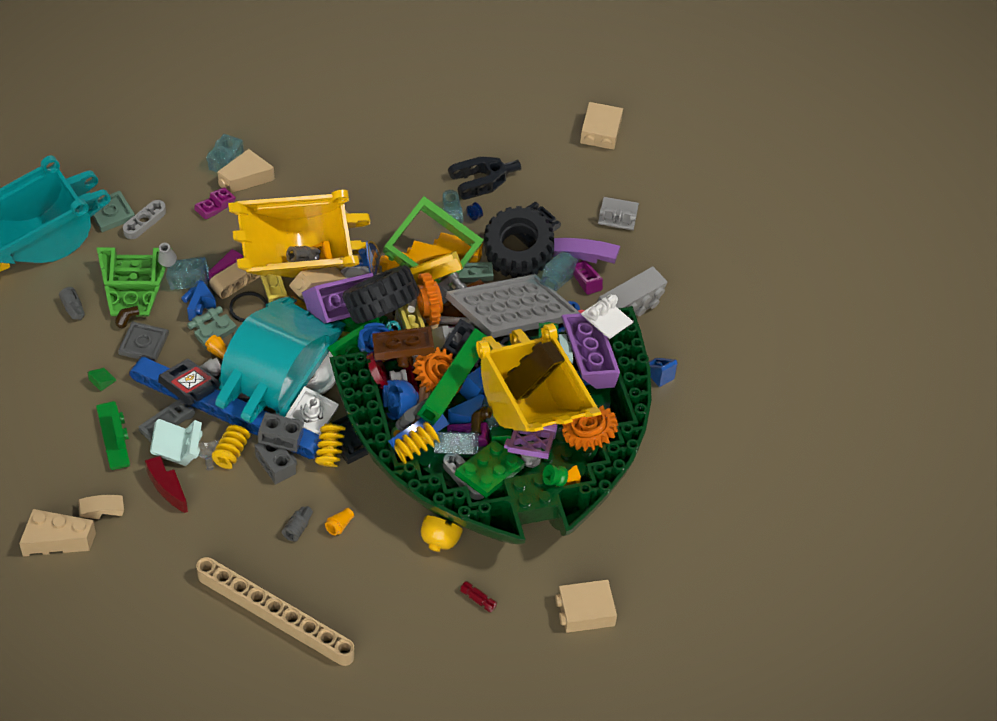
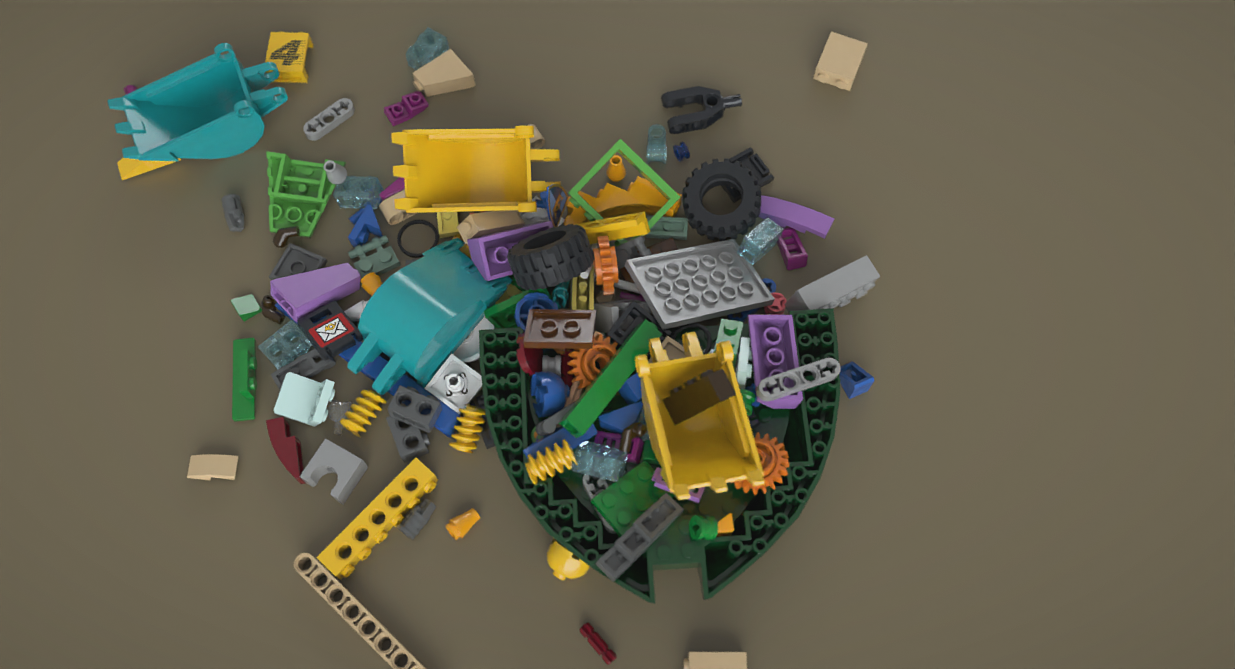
camera: 15 degrees right, 15 degrees up
(56, 532) = (155, 494): tan wedge -> none
(101, 164) = (289, 54): none -> yellow panel
(114, 213) = (299, 107): sand green tile -> none
(124, 379) = (269, 310): none -> dark brown arm
(150, 399) = (282, 342): none -> clear light blue brick
(165, 352) = (311, 290): none -> medium lavender slope
(217, 487) = (334, 459): none -> light grey piece
(289, 486) = (332, 557): none -> yellow brick
(302, 253) = (480, 188): dark grey hinge -> none
(325, 251) = (504, 186): light orange tile -> none
(419, 230) = (616, 169): none -> light orange cone
(503, 489) = (639, 537): none -> dark grey slope
(607, 316) = (800, 324): white hinge -> none
(611, 354) = (797, 377): none -> light grey beam
(618, 213) = (840, 172): light grey hinge -> none

